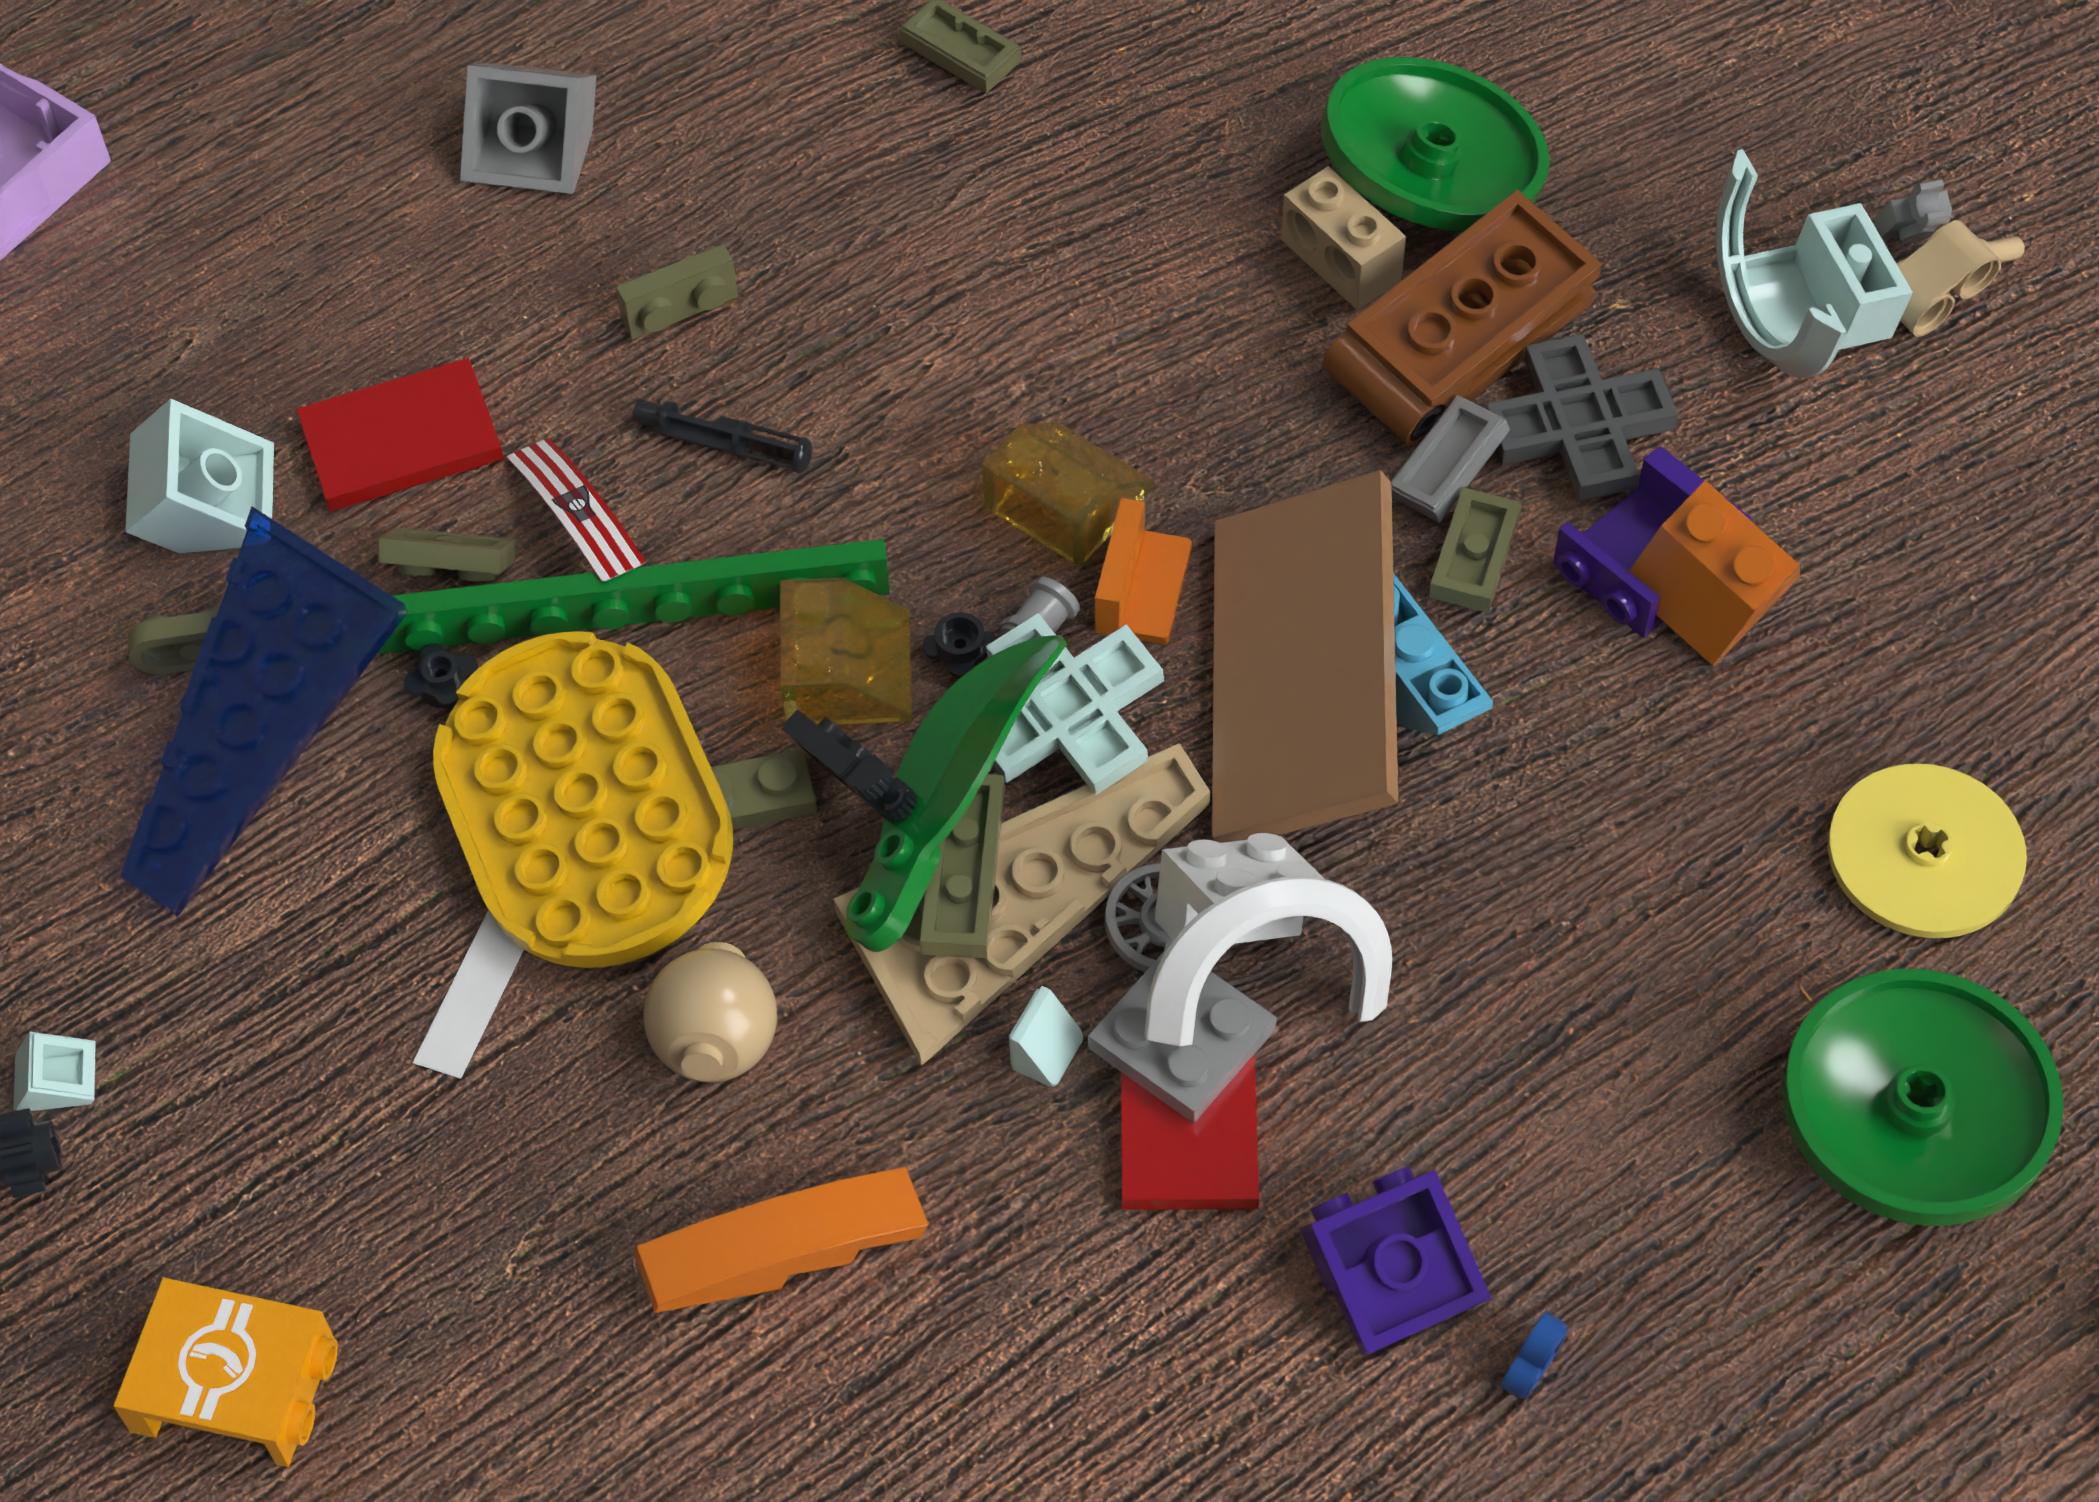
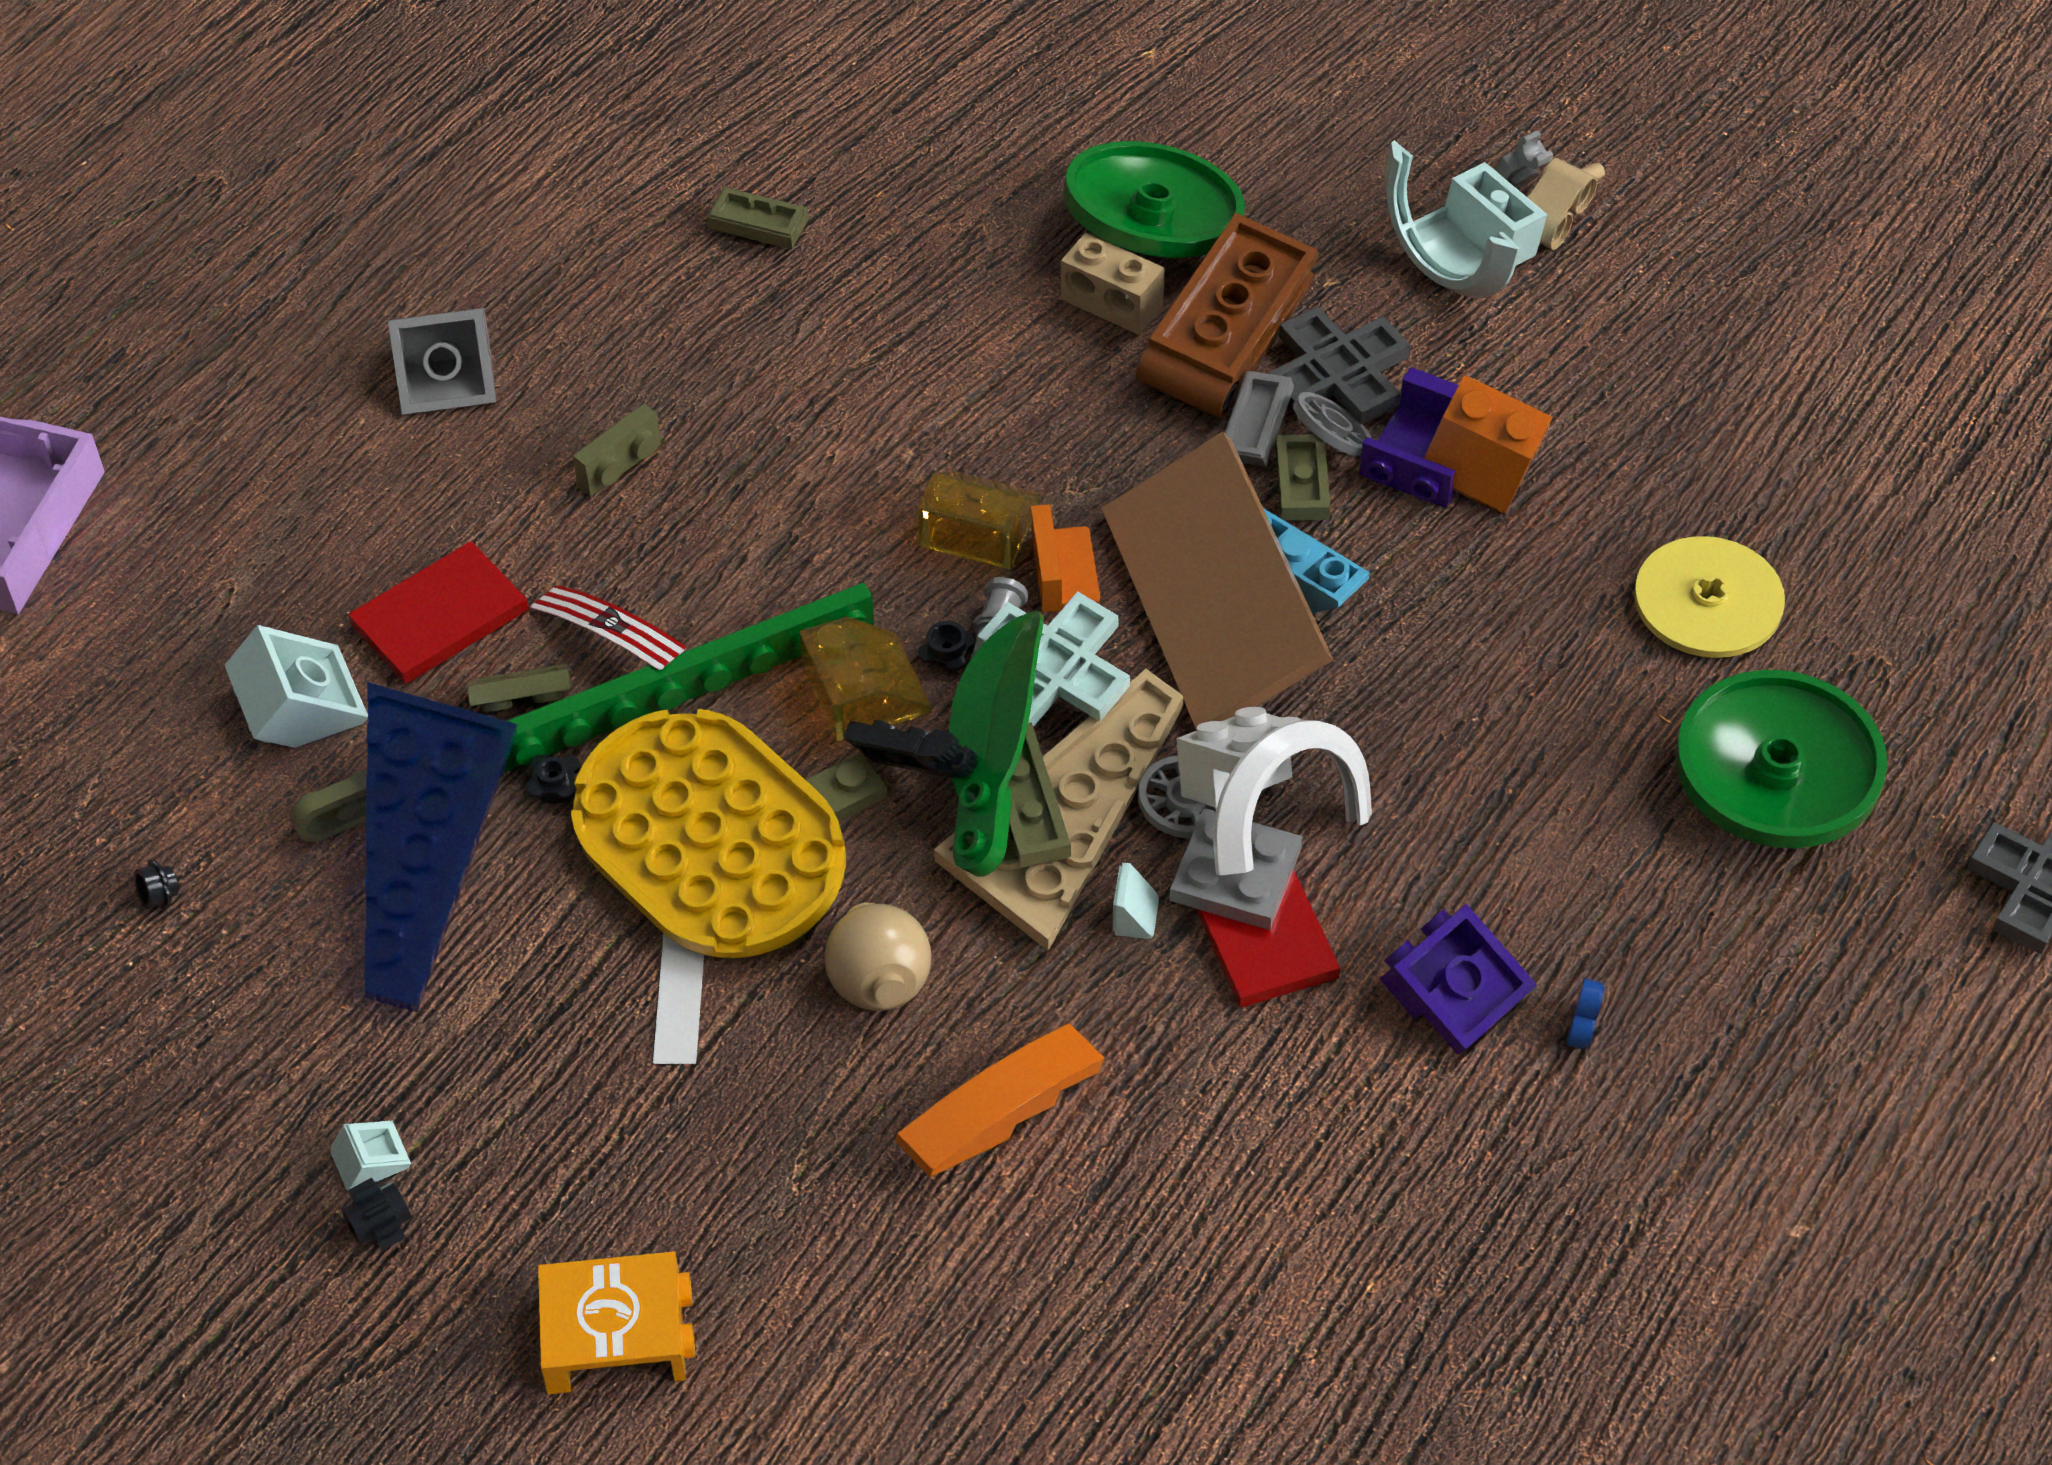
camera: 20 degrees left, 5 degrees down
(724, 435) = (699, 545): black piece -> none
(1536, 491) = (1330, 423): none -> light grey wheel

